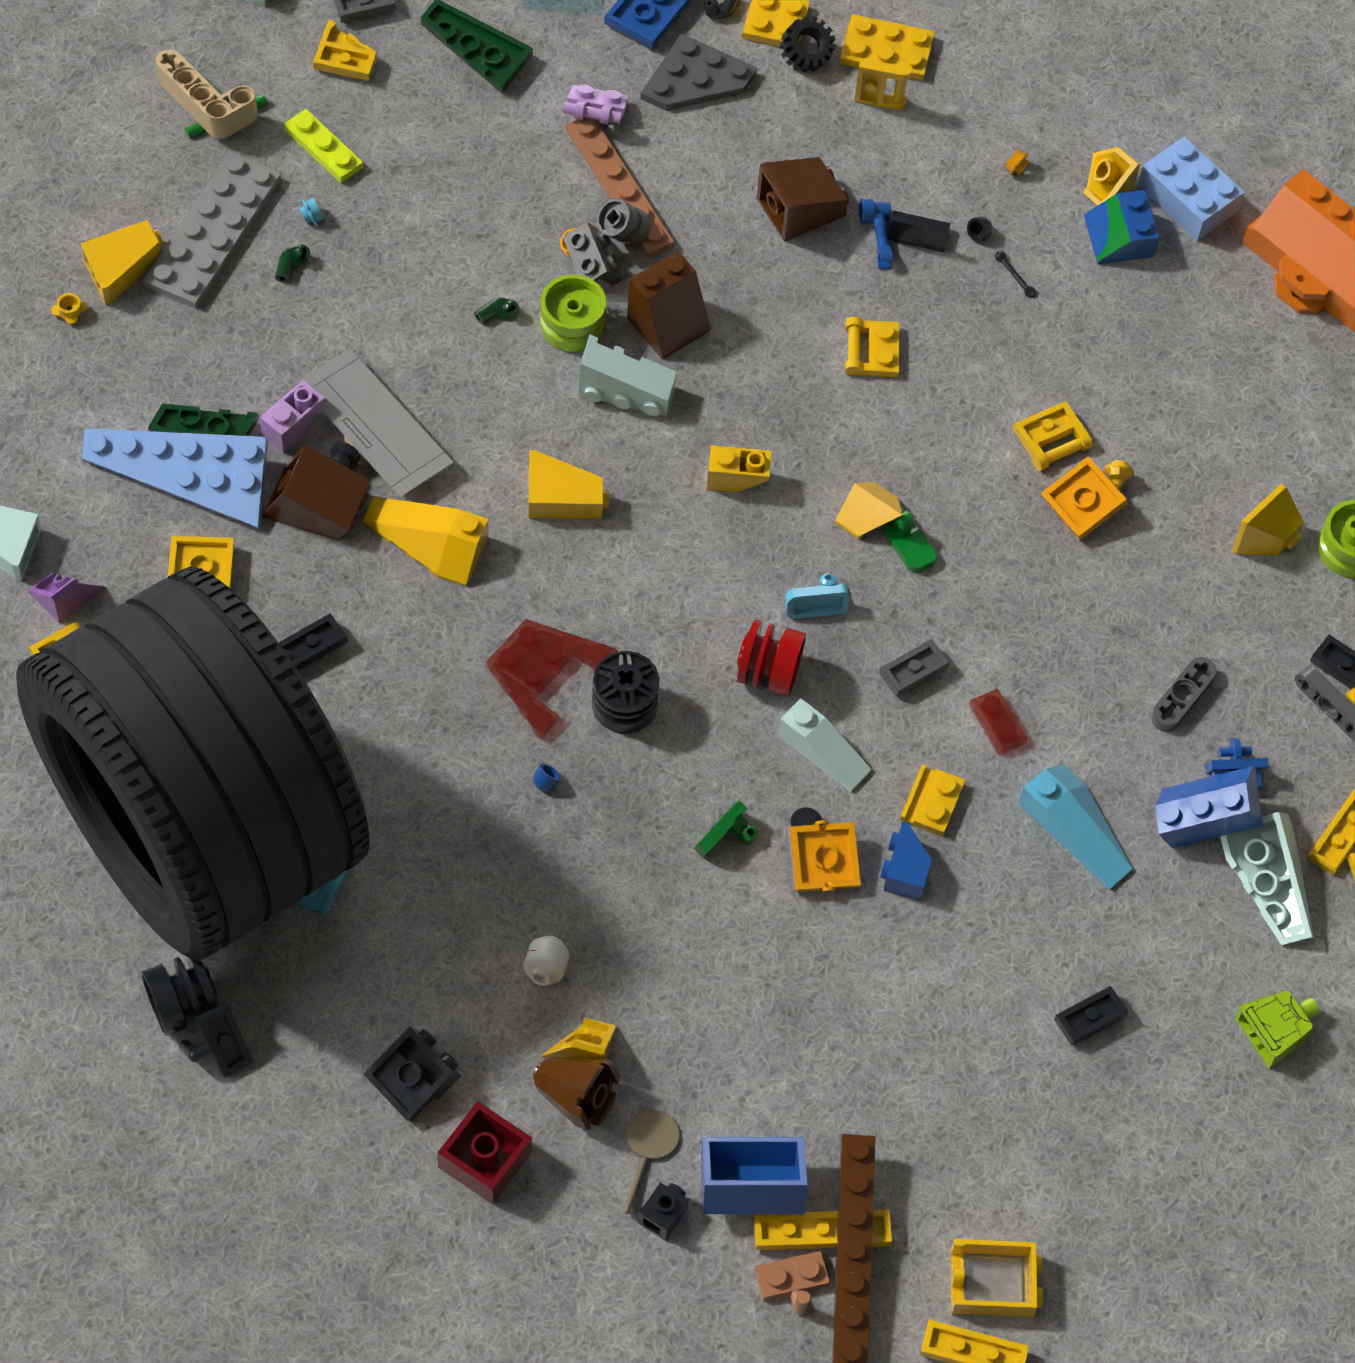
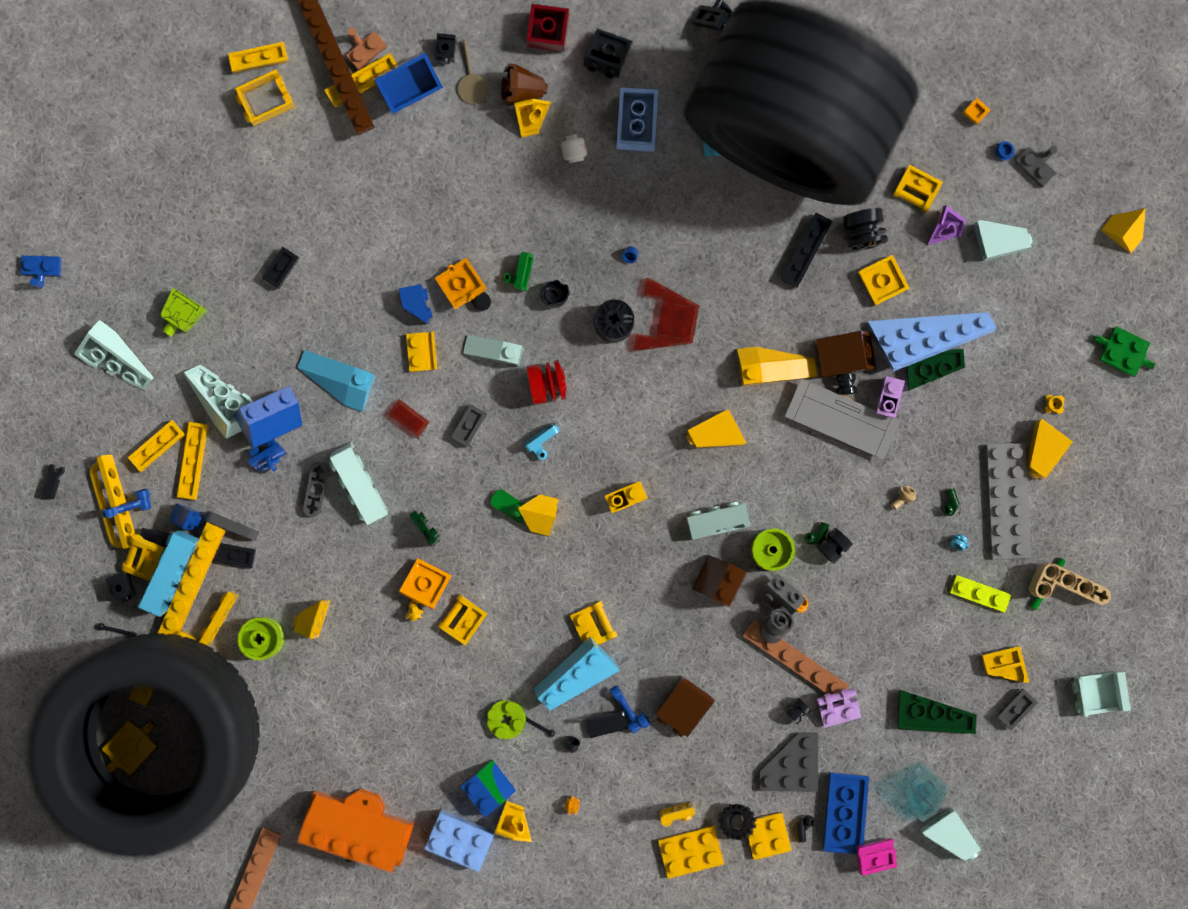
camera: 155 degrees right, 25 degrees up
(345, 299) = (907, 494): none -> tan plate
(426, 949) = (637, 119): none -> light blue brick
(484, 281) = (834, 545): none -> black wheel
(652, 126) = (799, 709): none -> black wheel
(691, 773) = (554, 294): none -> black hair
(930, 294) = (577, 673): none -> medium azure wedge
(1048, 559) = (420, 521): none -> dark green wing
(1058, 282) = (516, 724): none -> lime plate
(1118, 668) = (358, 484): none -> light aqua wedge

